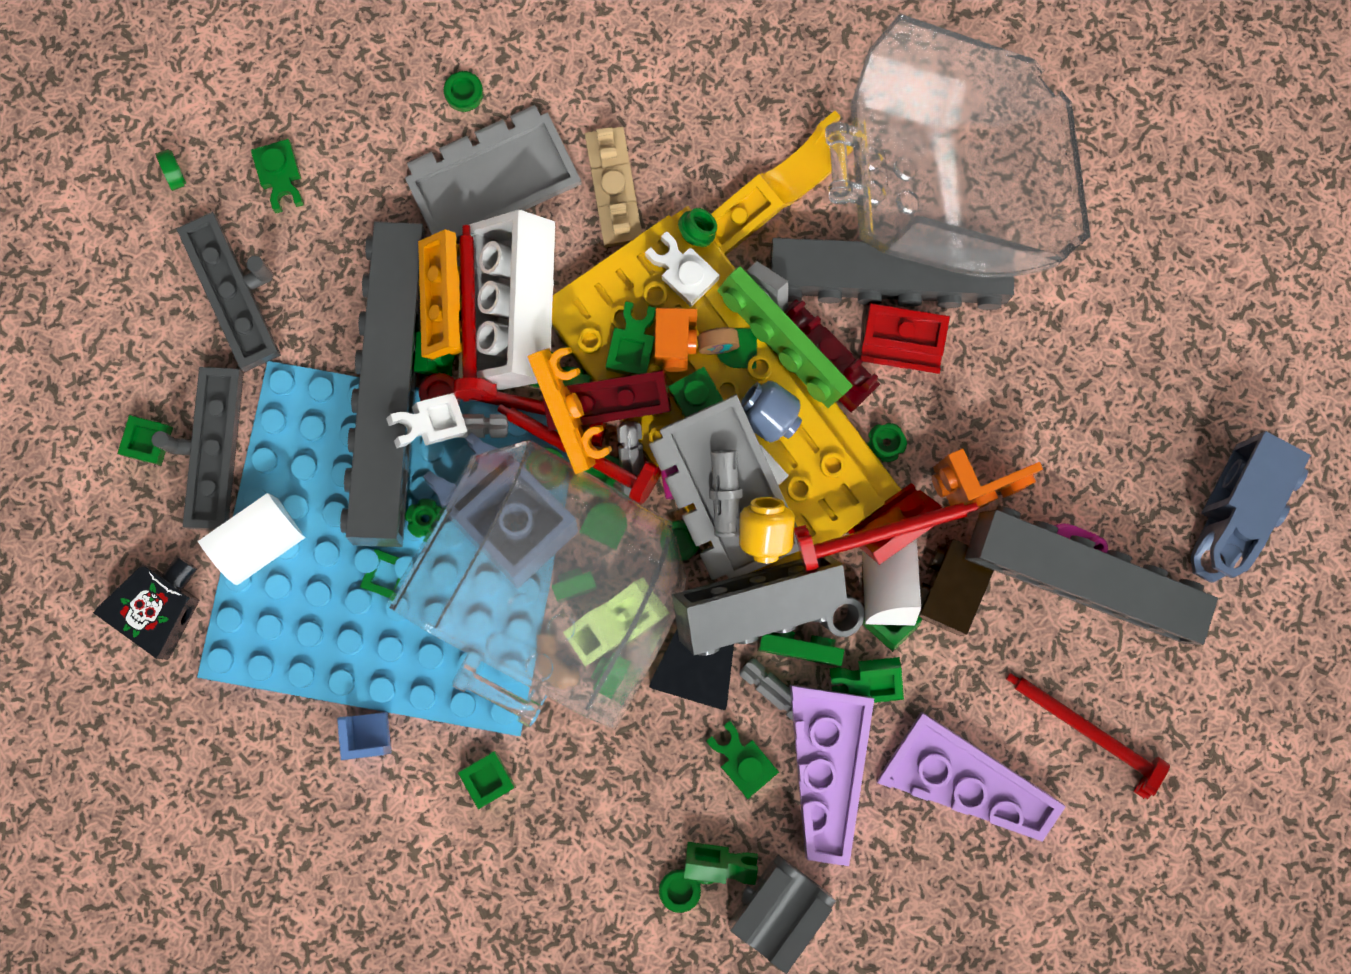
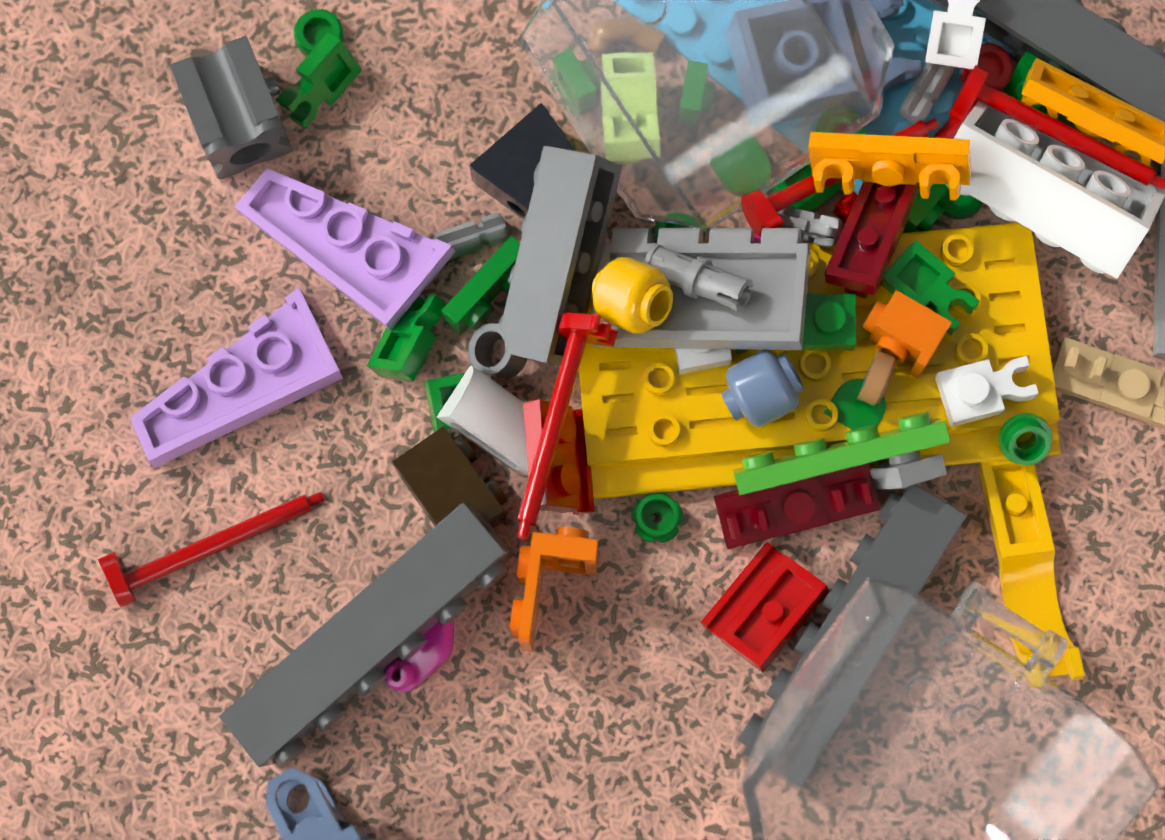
camera: 125 degrees right, 5 degrees down
(746, 764) = (400, 168): green plate -> none

